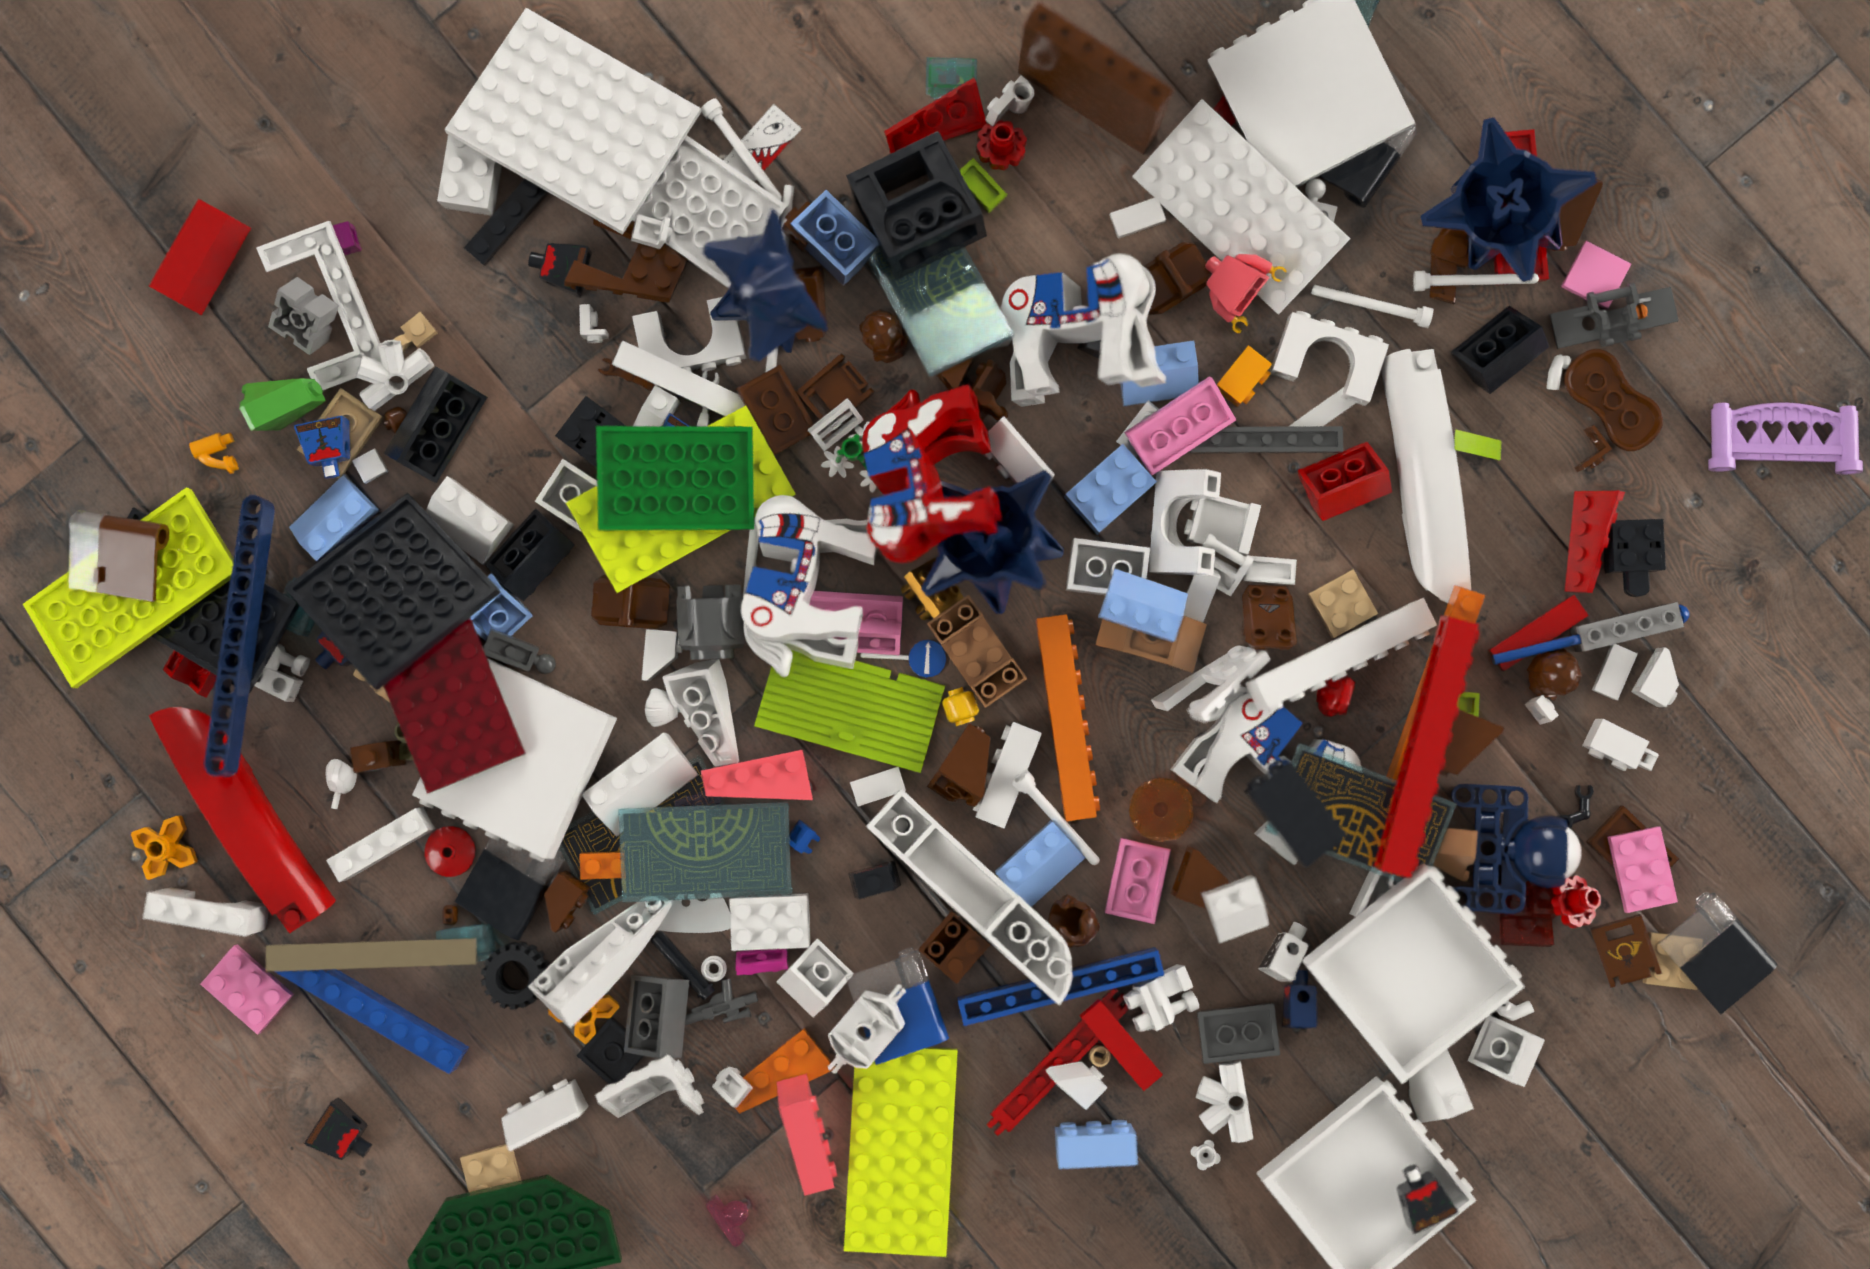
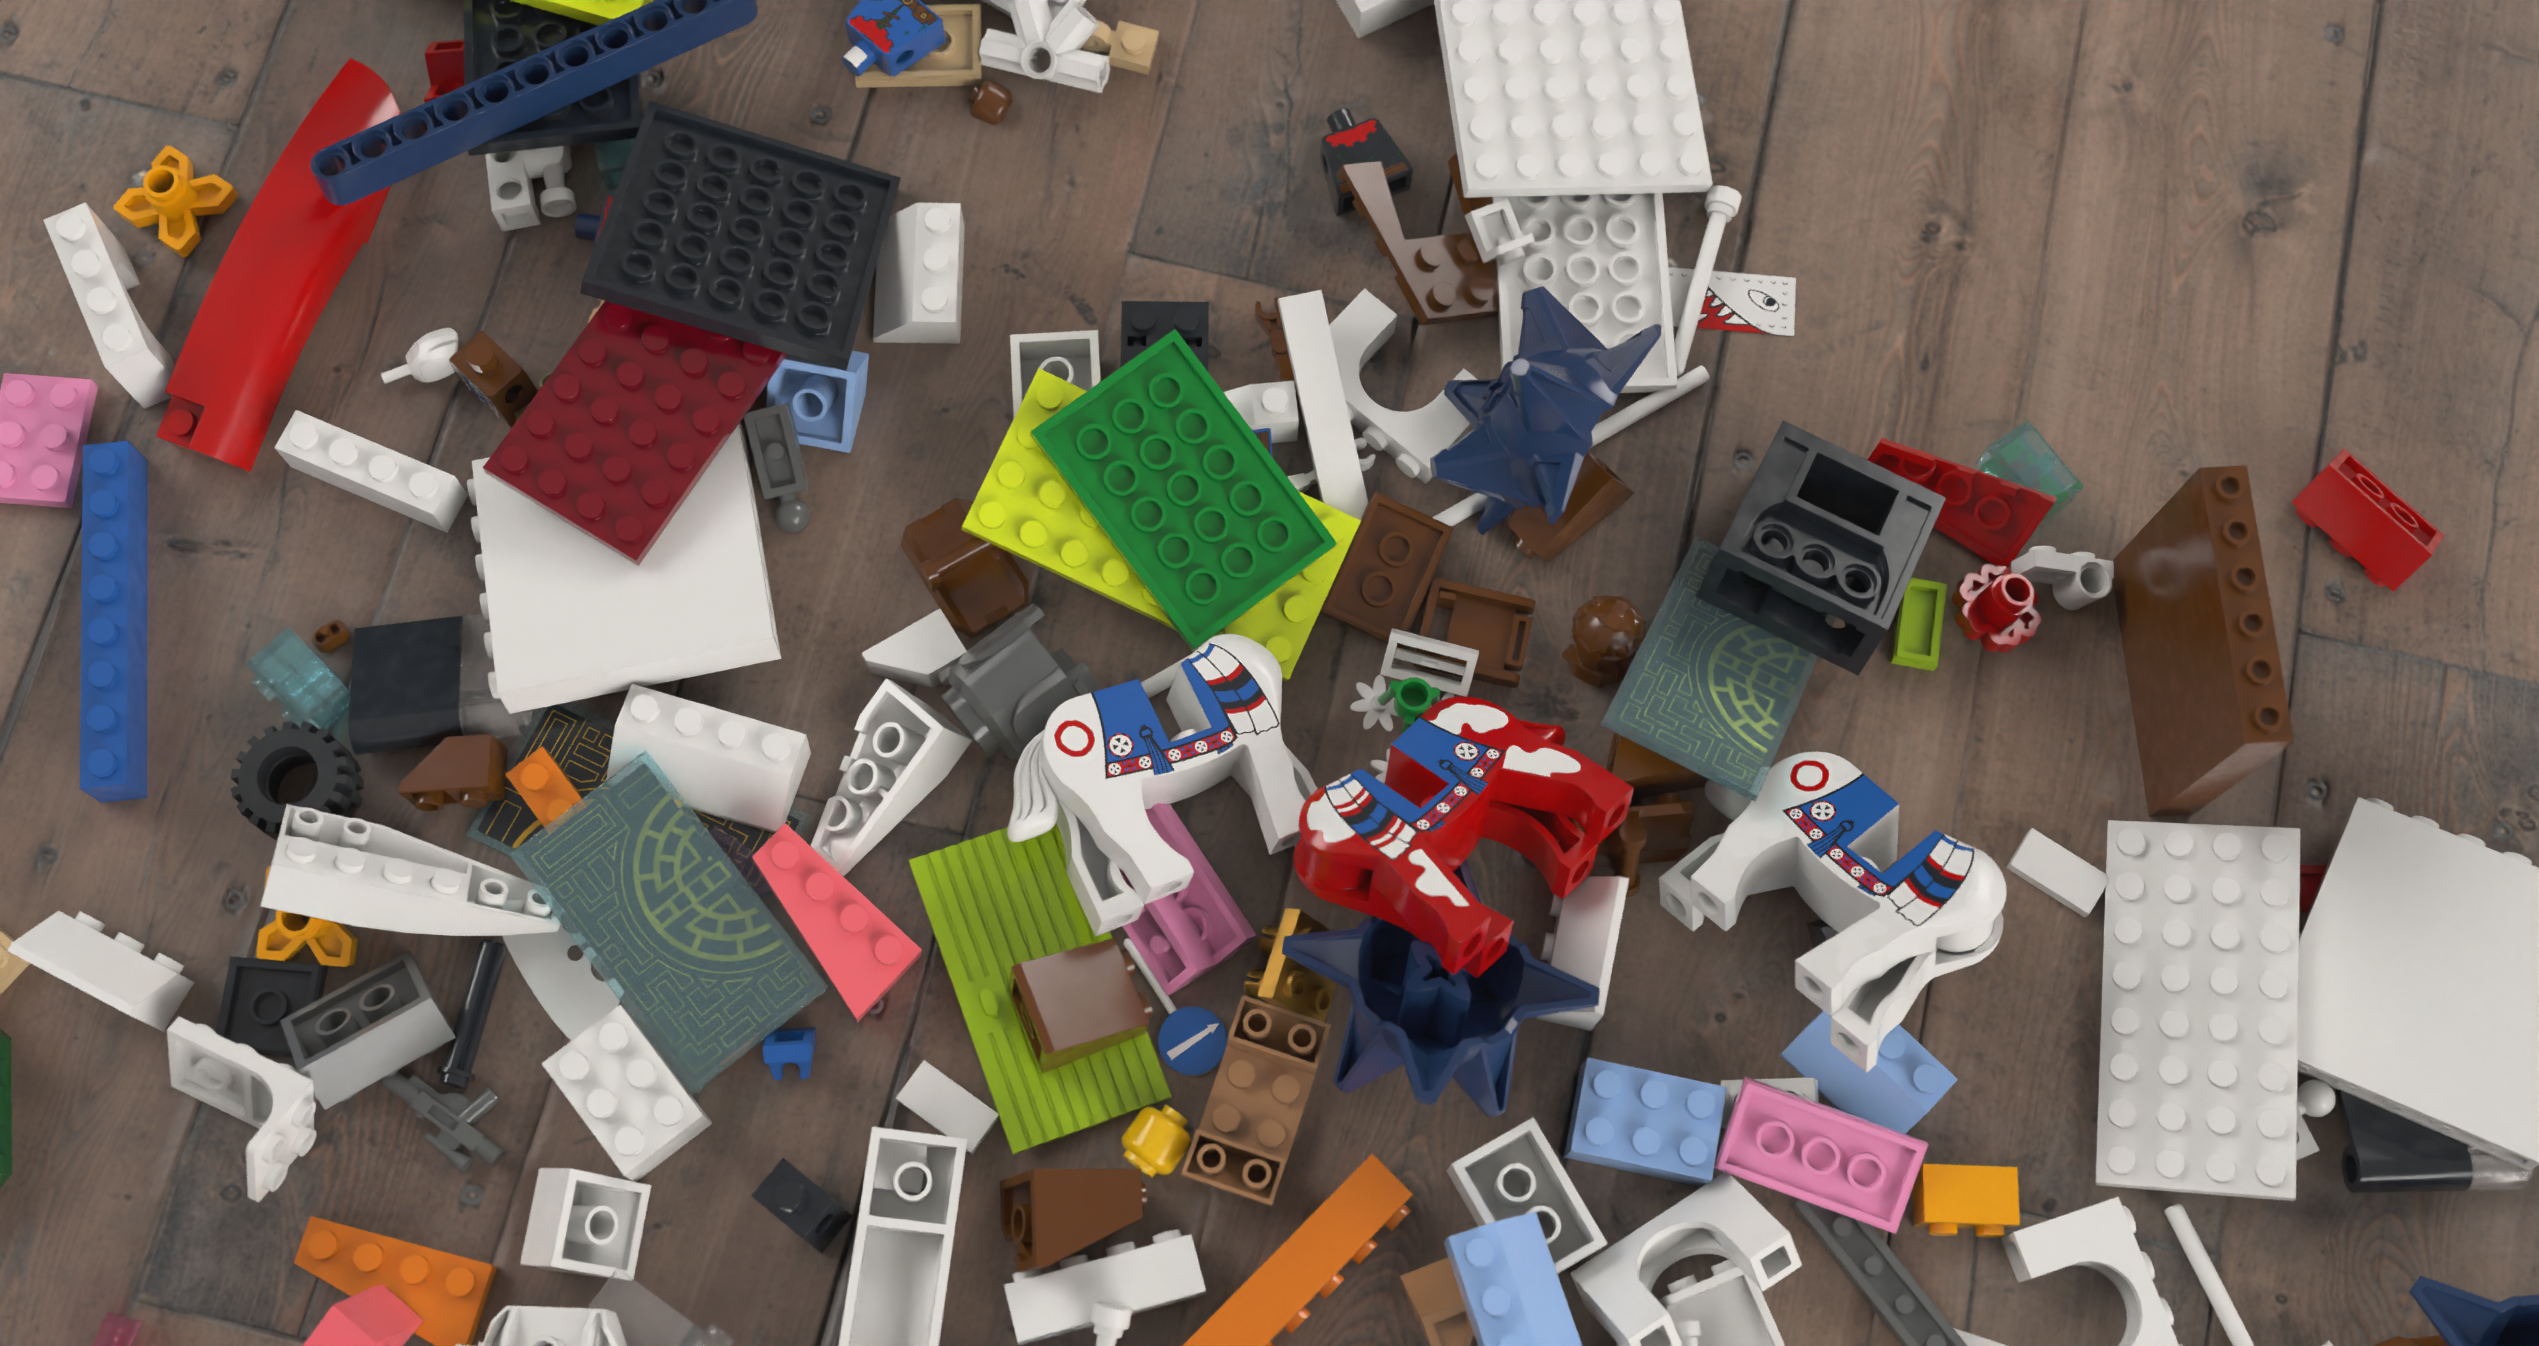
camera: 45 degrees right, 15 degrees down
(333, 518) = (795, 109): light blue slope -> none
(370, 466) = (902, 109): white tile -> none
(371, 954) = (194, 561): dark tan tile -> none
(435, 425) = (1020, 150): black slope -> none
(462, 849) = (436, 589): red dish -> none
(505, 221) = (1363, 55): black plate -> none
(529, 555) = (930, 388): black slope -> none
(588, 321) = (1310, 242): white bracket -> none
(659, 708) = (837, 710): white piece -> none
(705, 968) = (487, 1057): white plate -> none
(732, 1086) = (328, 1217): white bracket -> none
(761, 961) = (557, 1124): dark pink plate -> none
(790, 232) = (1665, 402): reddish brown bracket -> none
(835, 237) = (1685, 474): light blue slope -> none
(877, 697) = (1078, 1002): none -> reddish brown slope
(1177, 276) = (2023, 988): reddish brown shield -> none
(1236, 284) = (2089, 1080): coral torso -> none

